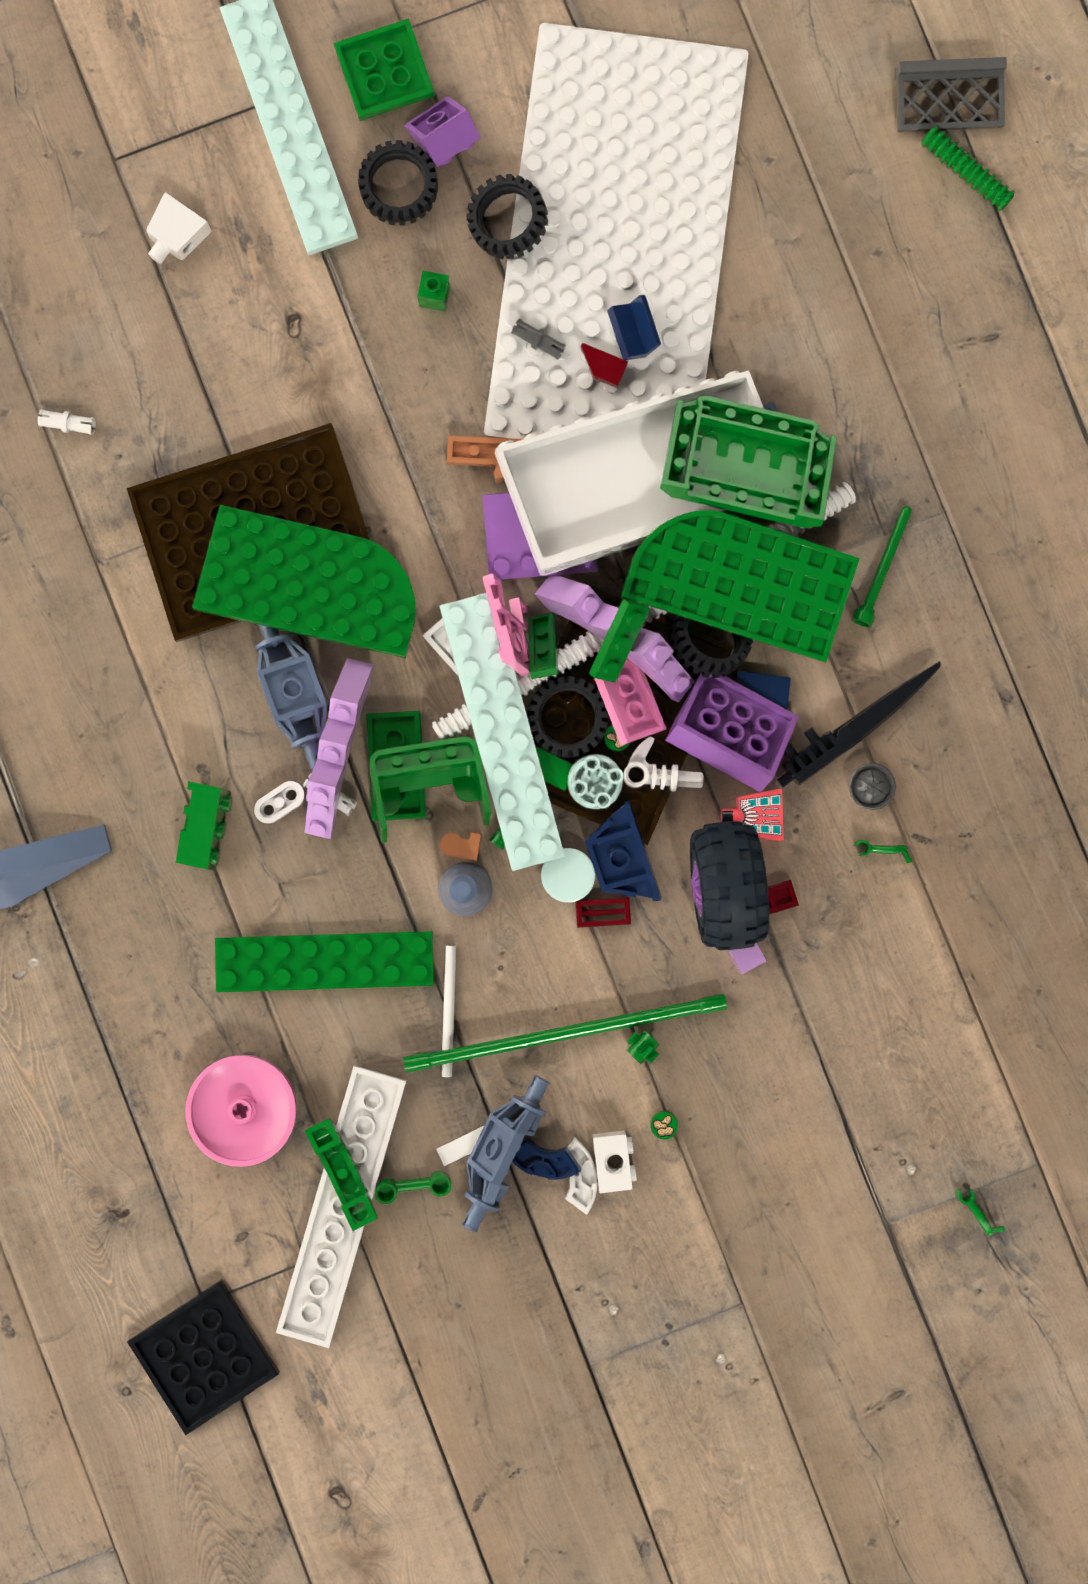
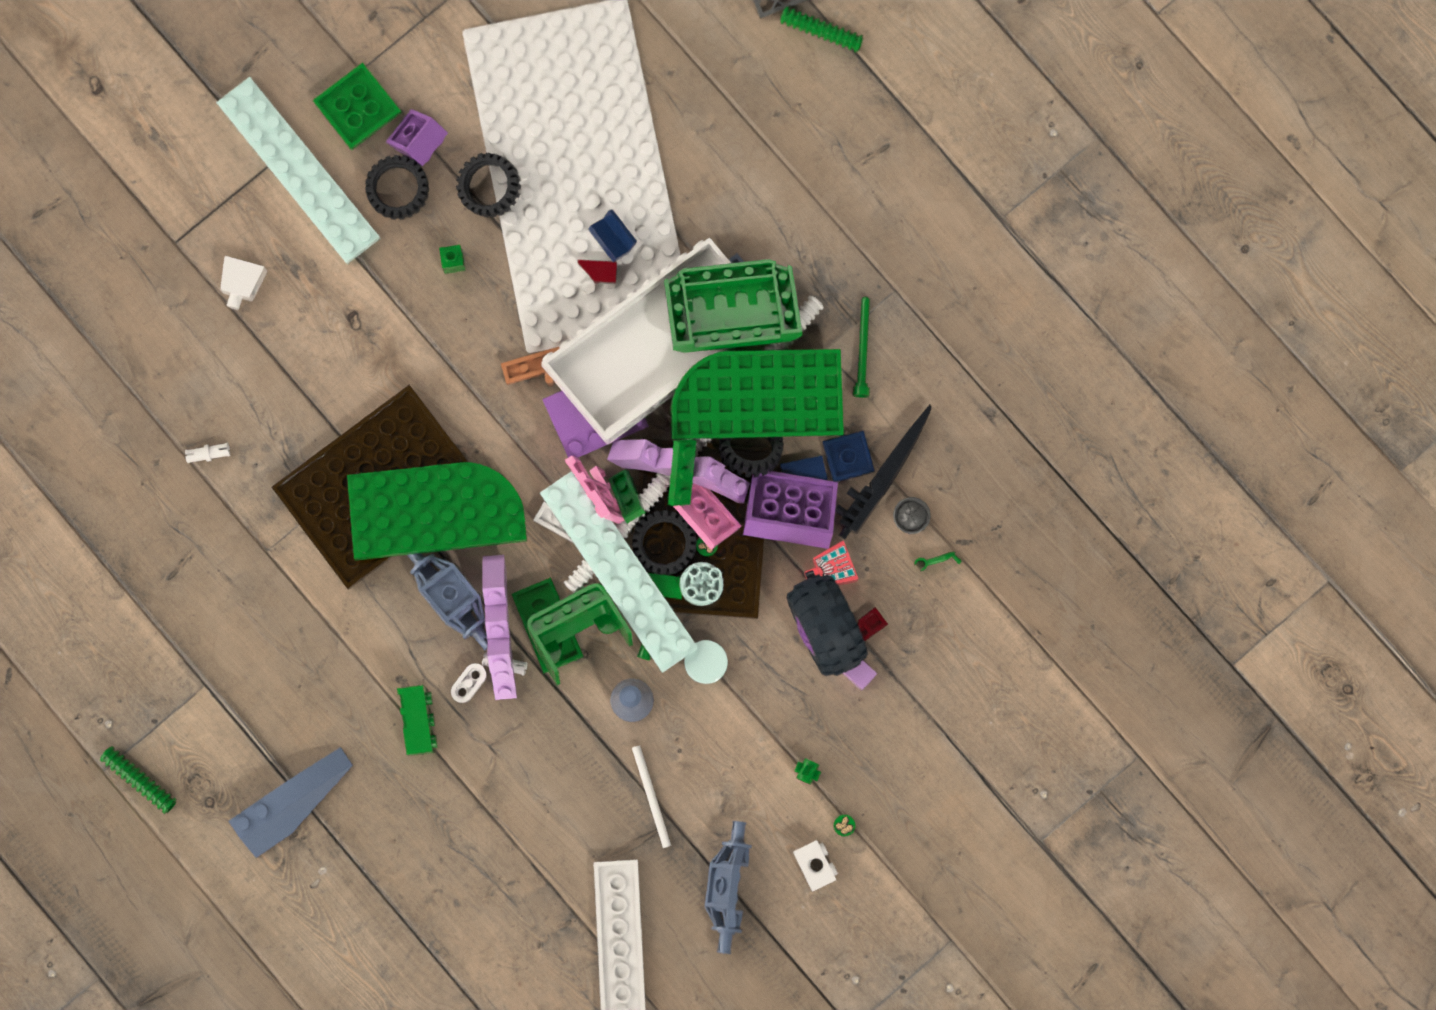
camera: 10 degrees left, 5 degrees down
(241, 1110) = (520, 924): bright pink dish -> none
(324, 961) = (544, 792): green plate -> none
(342, 1173) = (613, 944): green slope -> none
(387, 1189) = (652, 947): green bar -> none
(427, 1060) = (649, 837): green piece -> none
(456, 846) = (617, 669): nougat leg -> none
(459, 1148) = (695, 898): white sticker -> none
(538, 339) = (544, 268): dark grey pin -> none
(546, 1163) = (763, 885): dark blue tile -> none
(584, 1184) = (796, 886): white tile -> none
(622, 857) = (741, 633): dark blue wing -> none
(626, 910) = (725, 688): dark red tile -> none
(663, 777) = (749, 563): white piece -> none
(821, 690) = (848, 456): none -> dark blue tile
(978, 1213) = (1104, 808): green piece -> none

